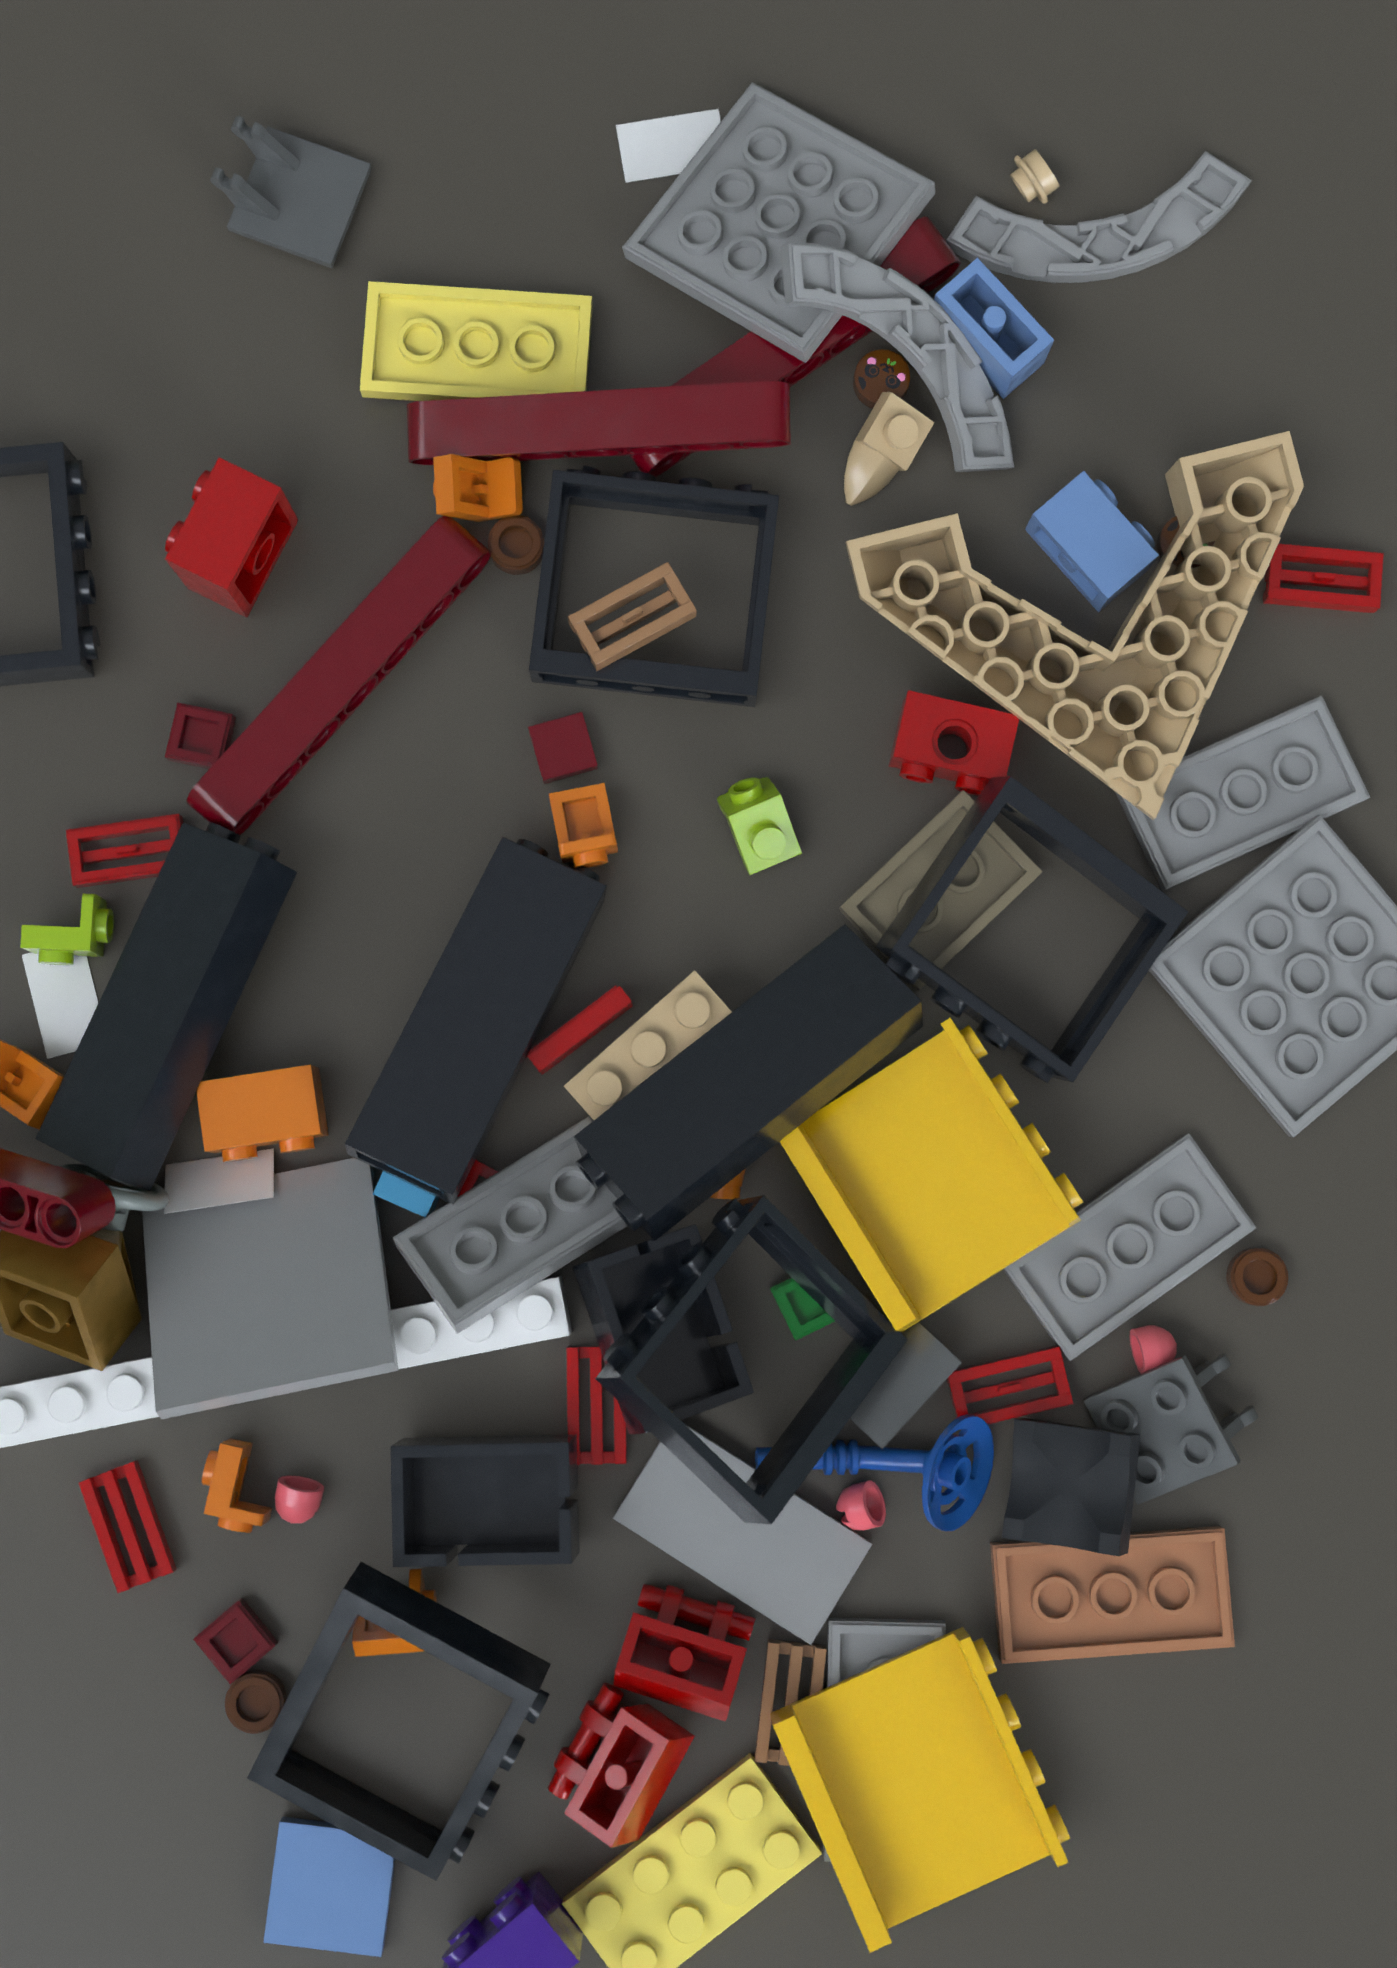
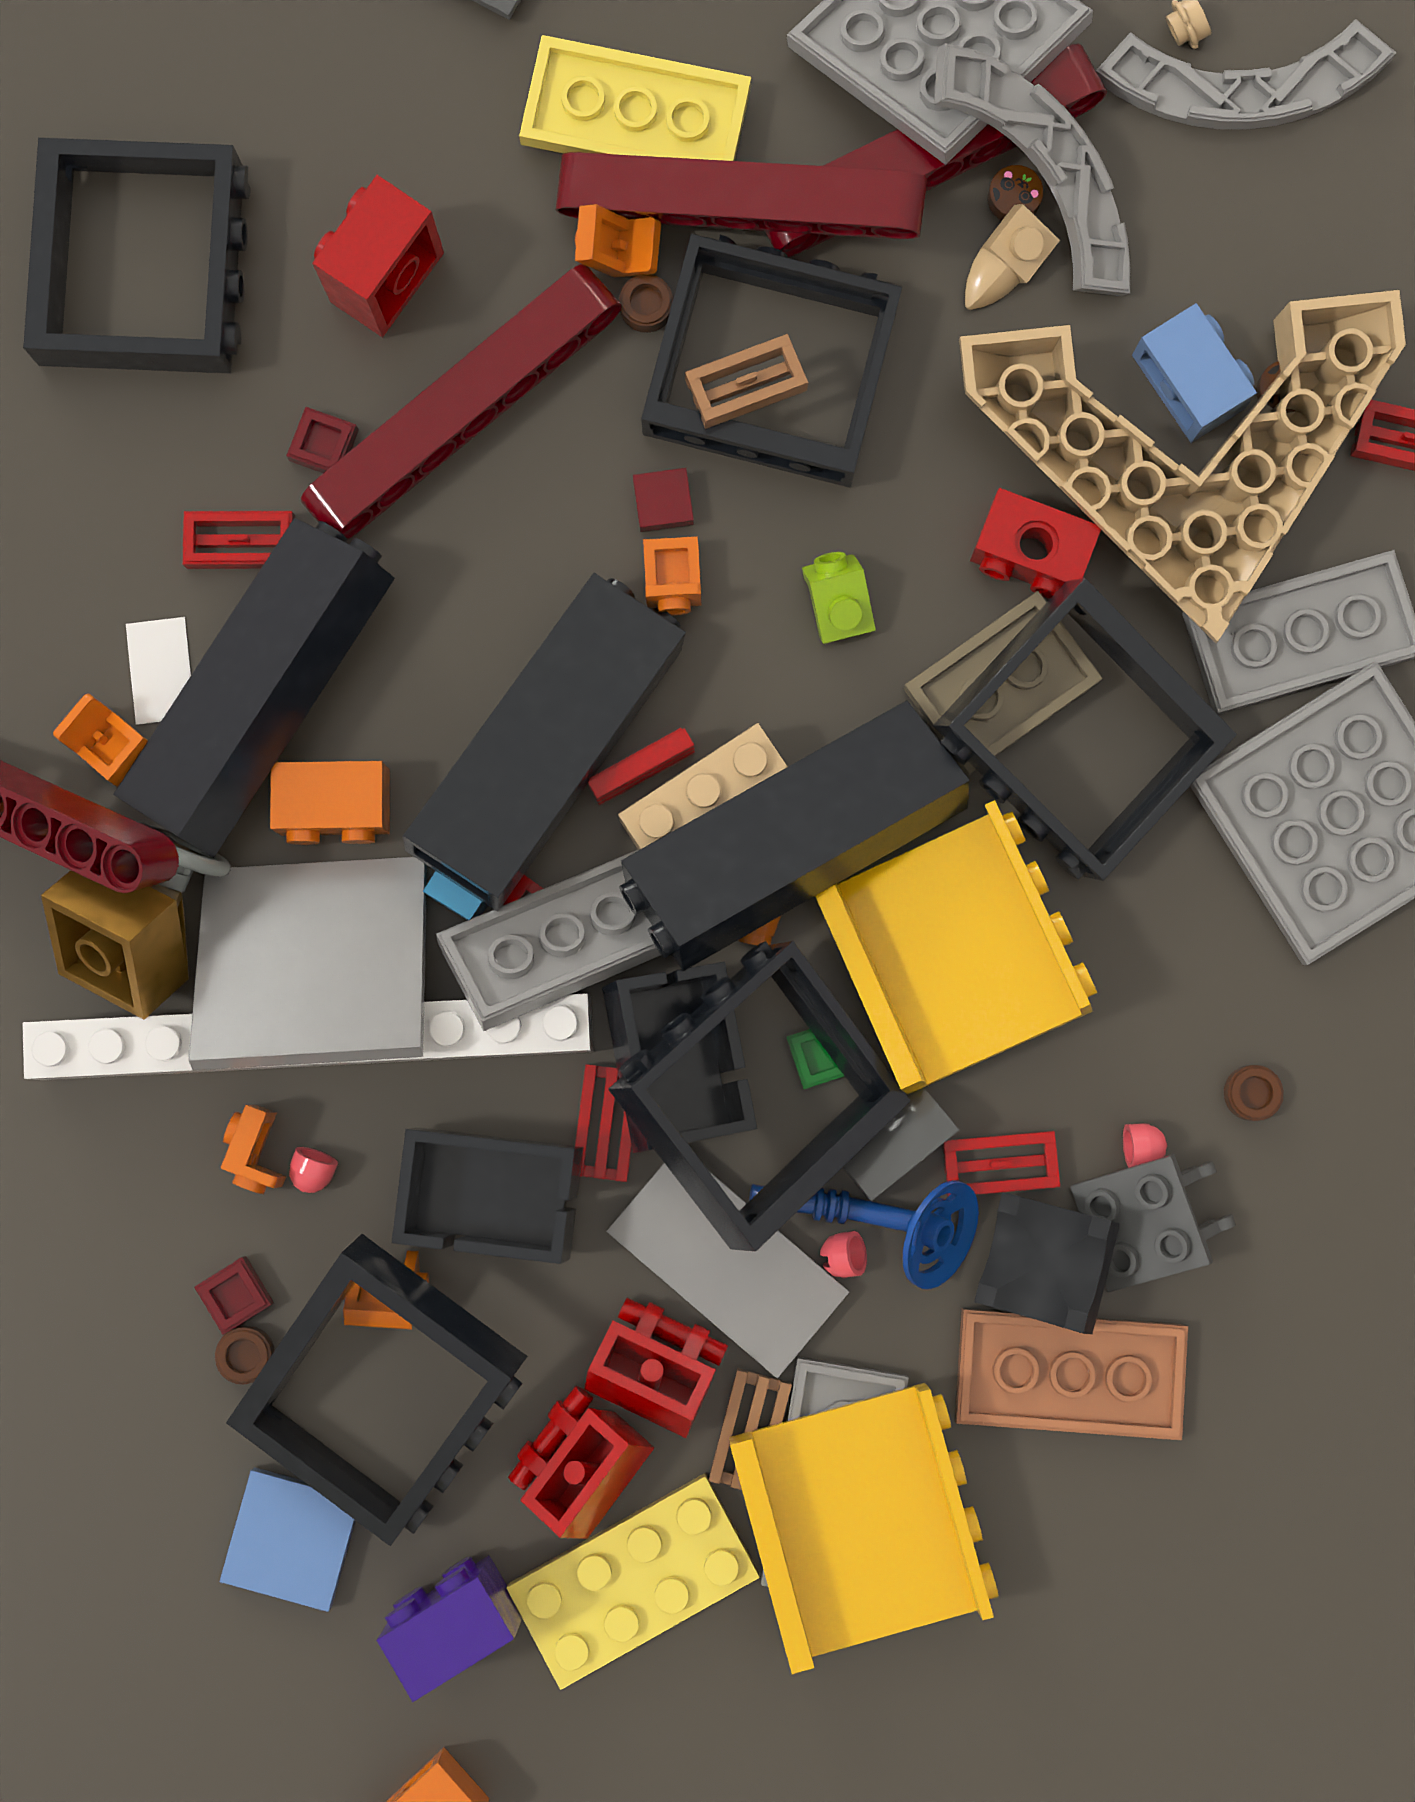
camera: 15 degrees right, 0 degrees up
(60, 944) = (163, 616): lime bracket -> none
(105, 1532) = (126, 1175): red tile -> none
(218, 1183) = (279, 862): white sticker -> none
(995, 326) = (1133, 156): medium blue brick -> none
(1130, 1247) = (1135, 1047): light grey tile -> none

